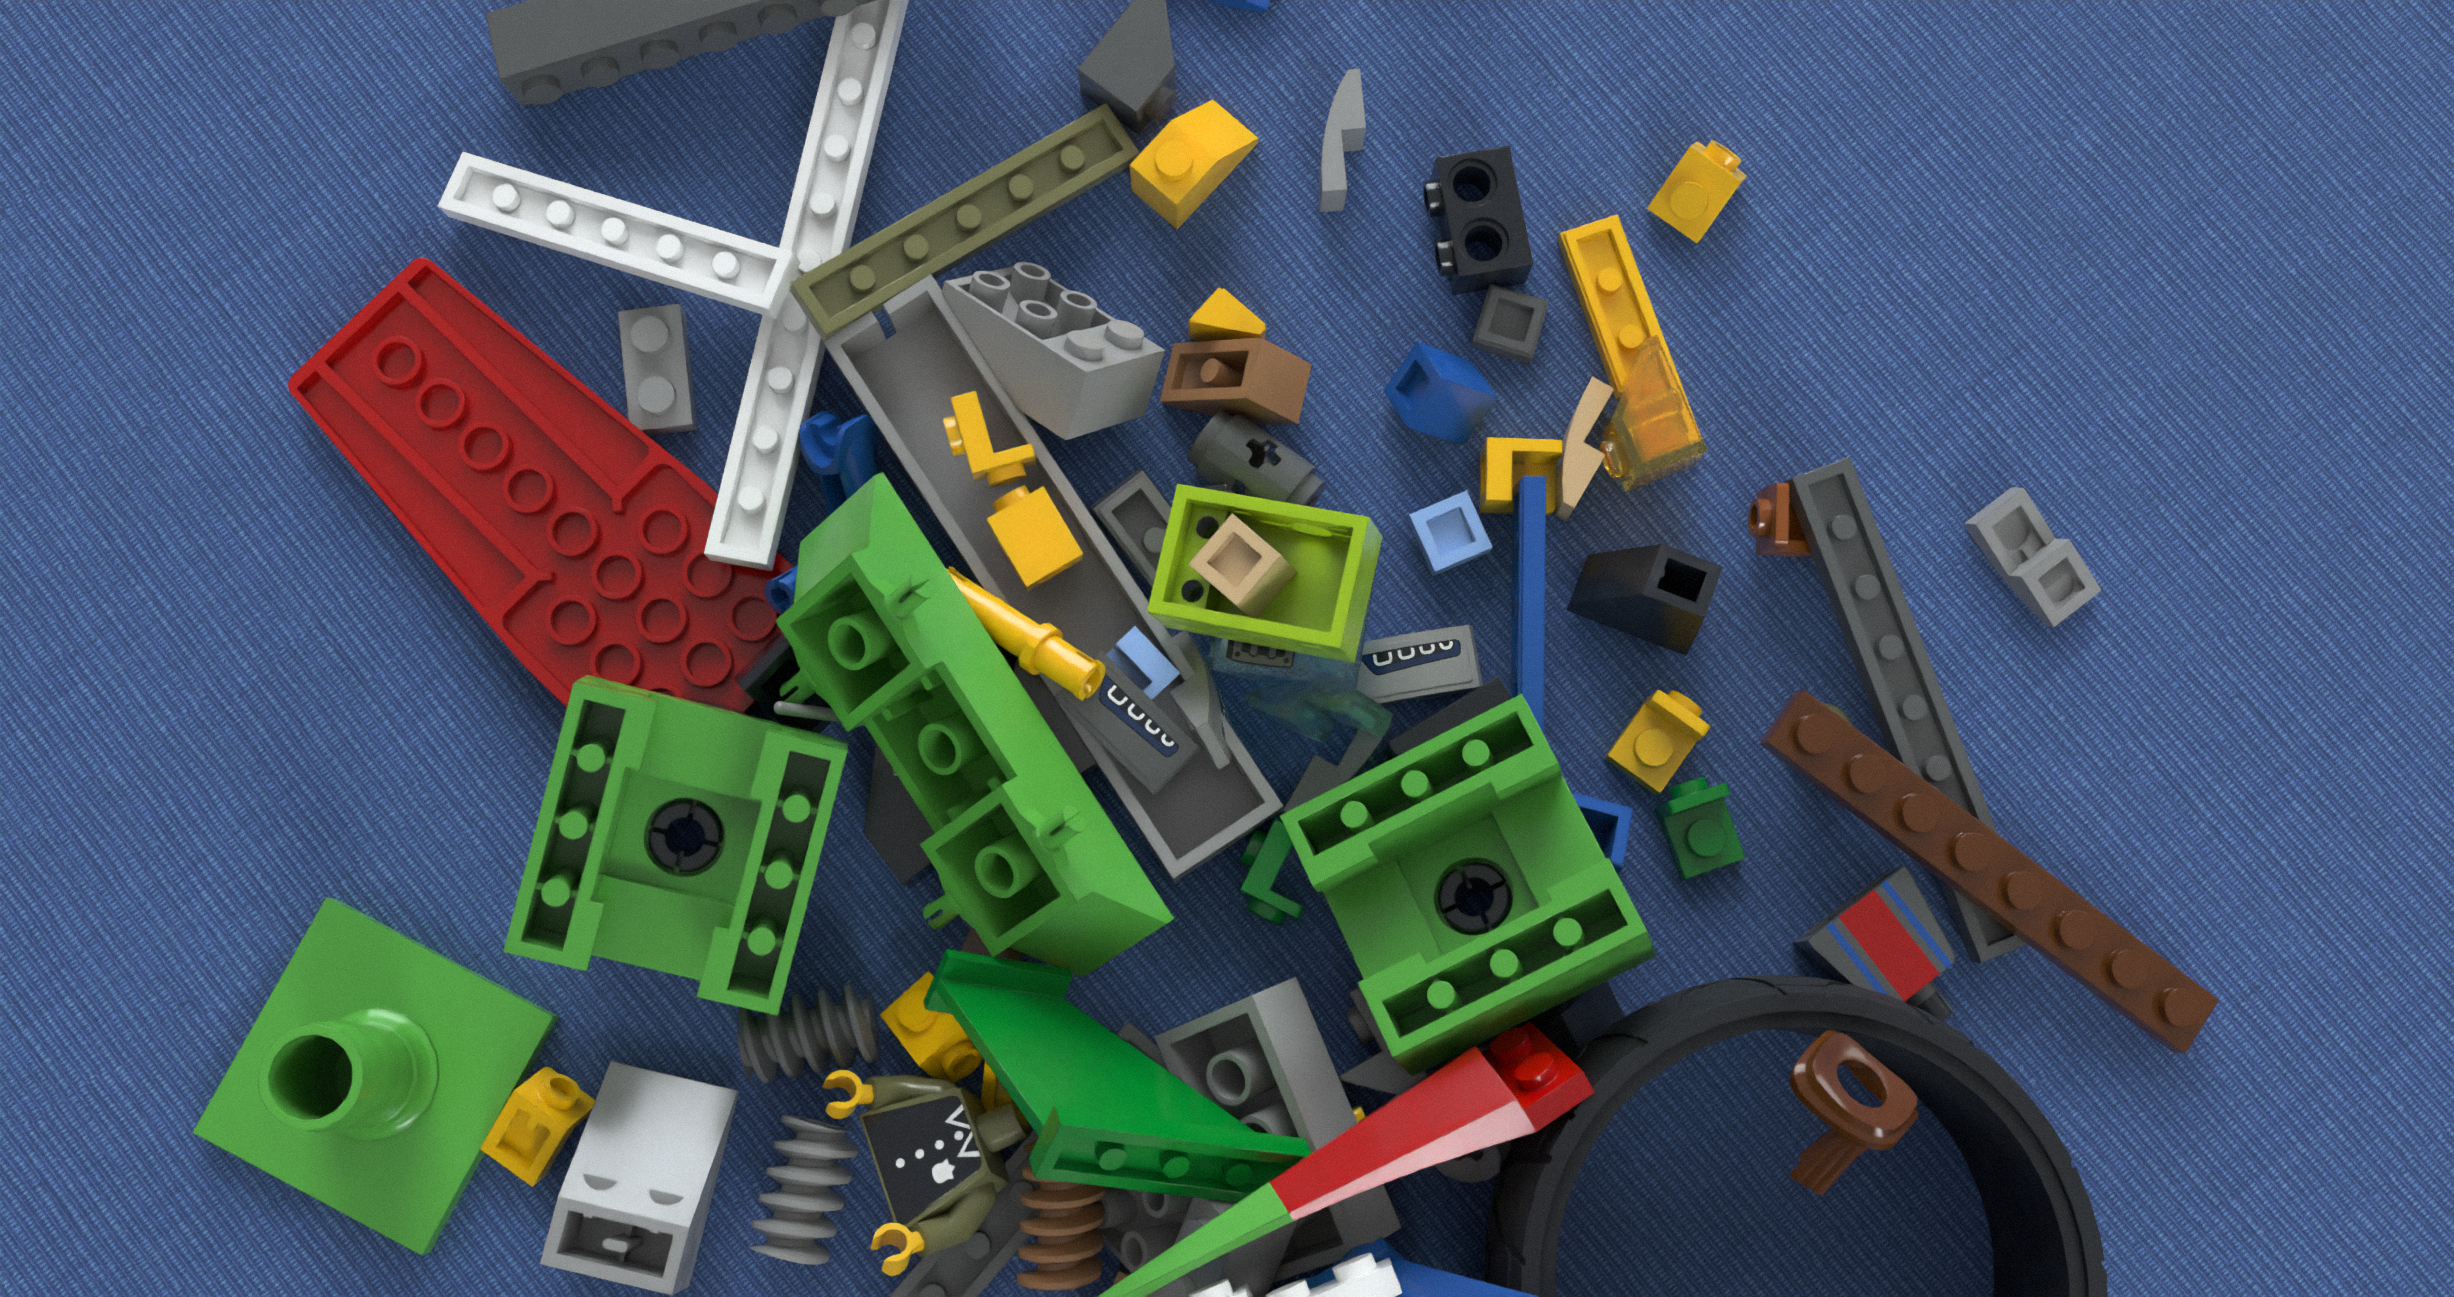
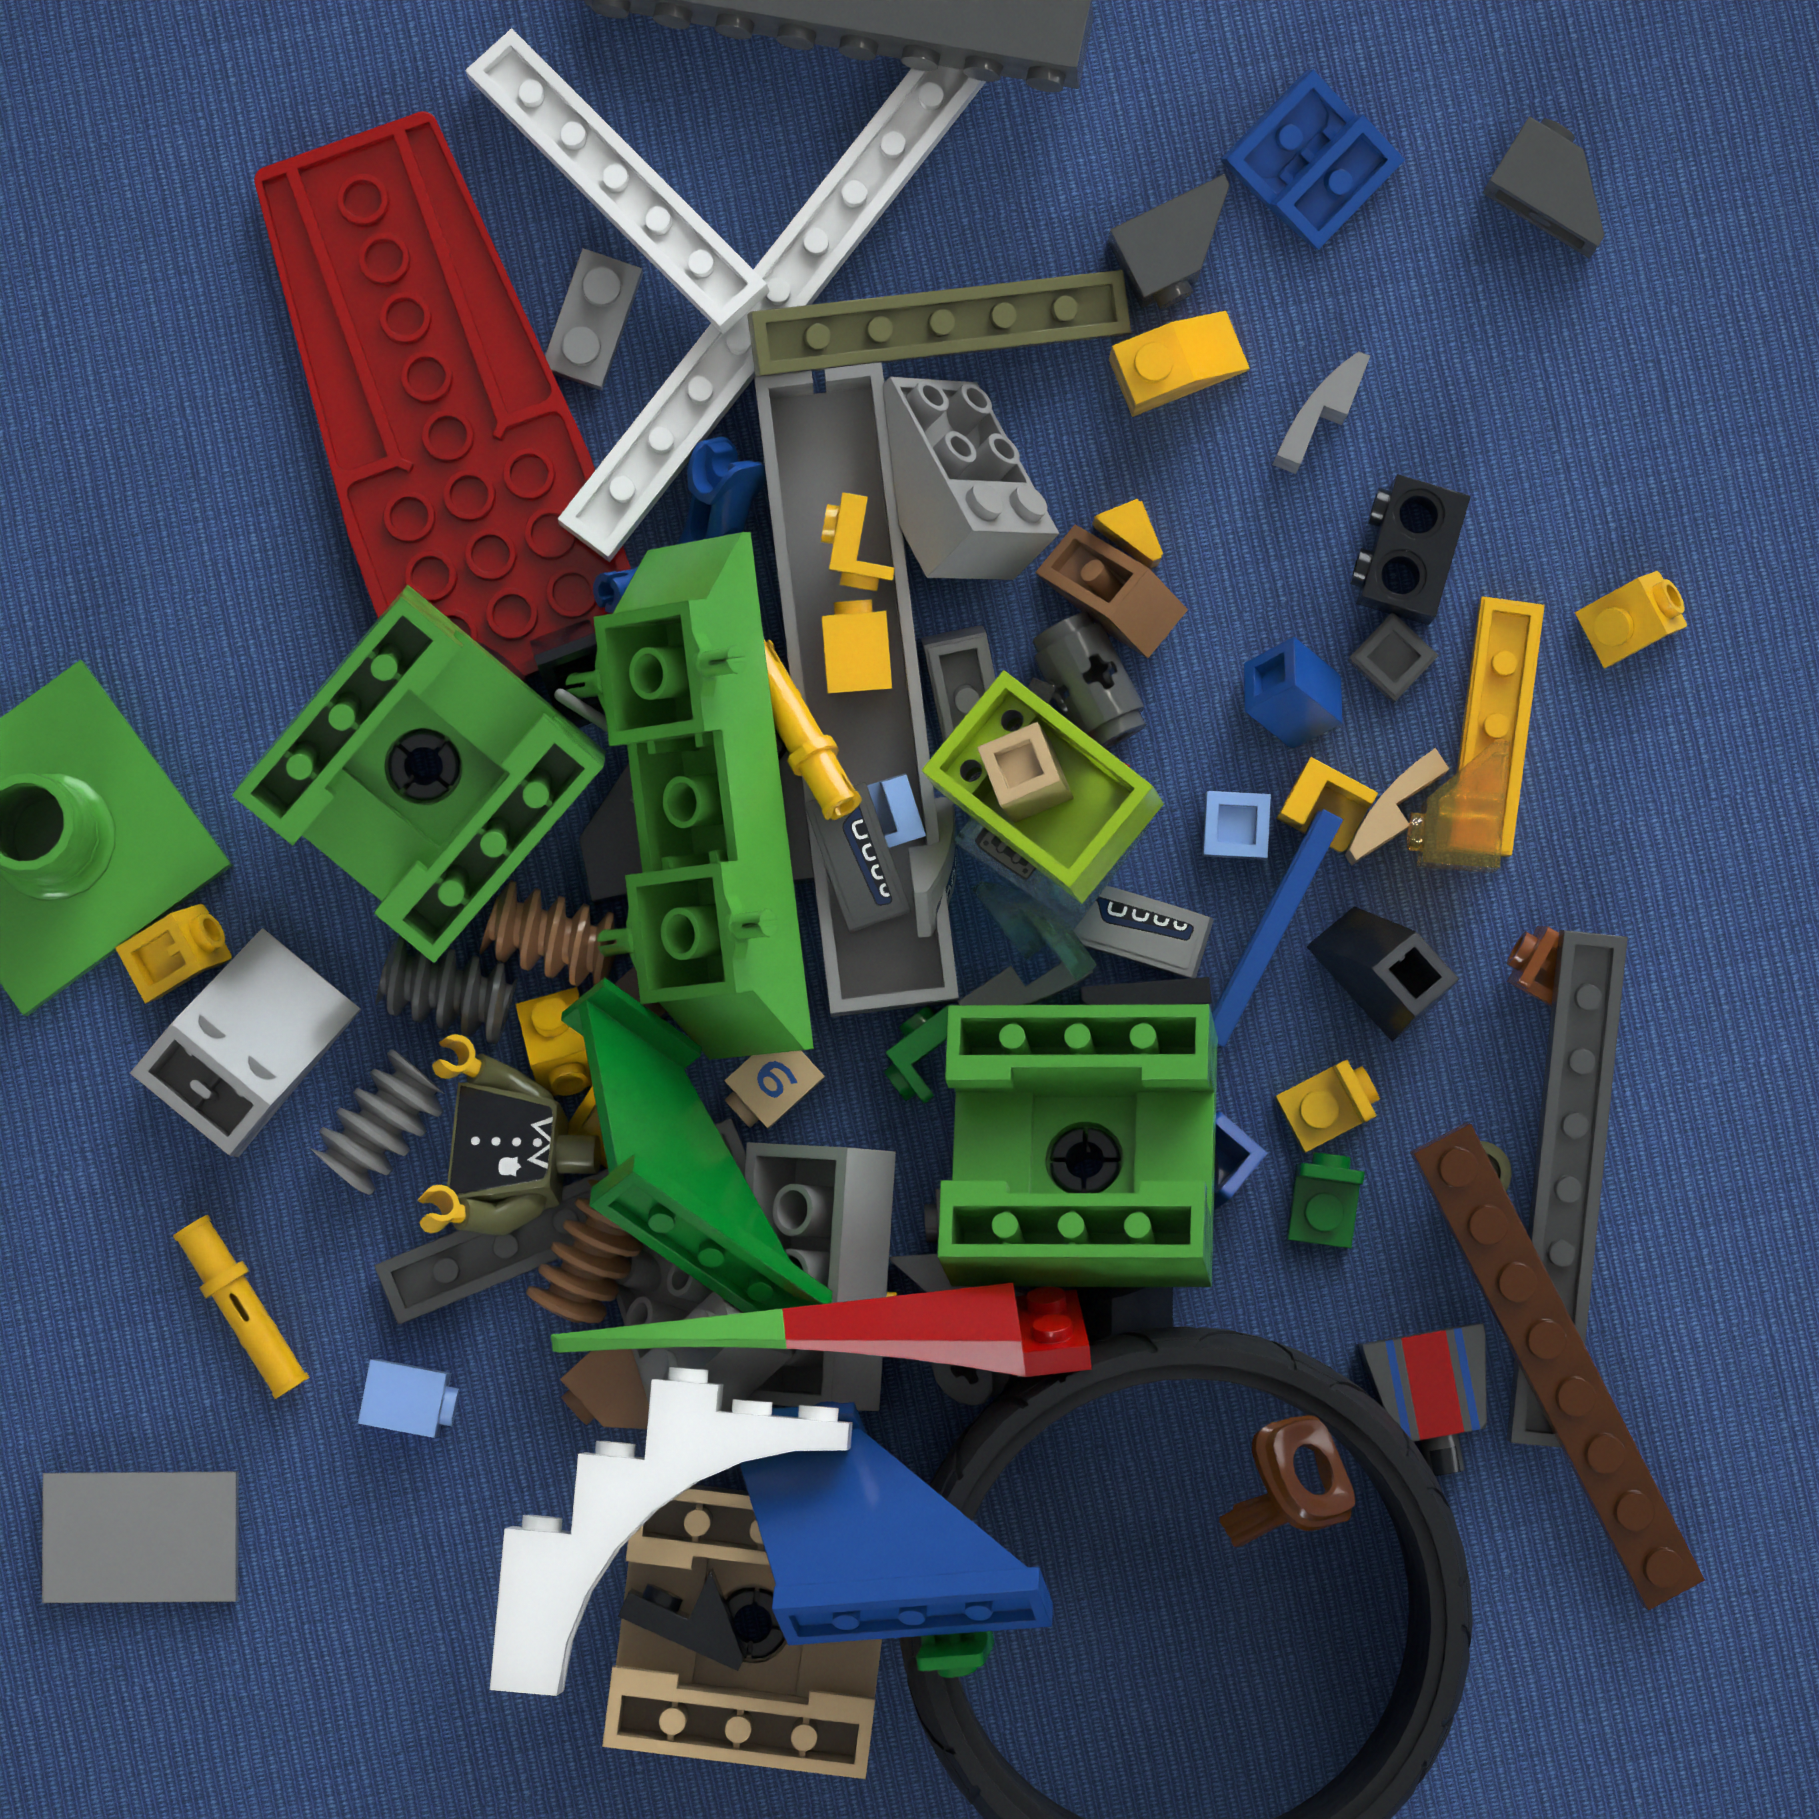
camera: 25 degrees right, 5 degrees up
(878, 937) = (548, 935): none -> medium nougat piece
(1150, 973) = (771, 1086): none -> tan brick
(2030, 559) = (1758, 1108): light grey slope -> none

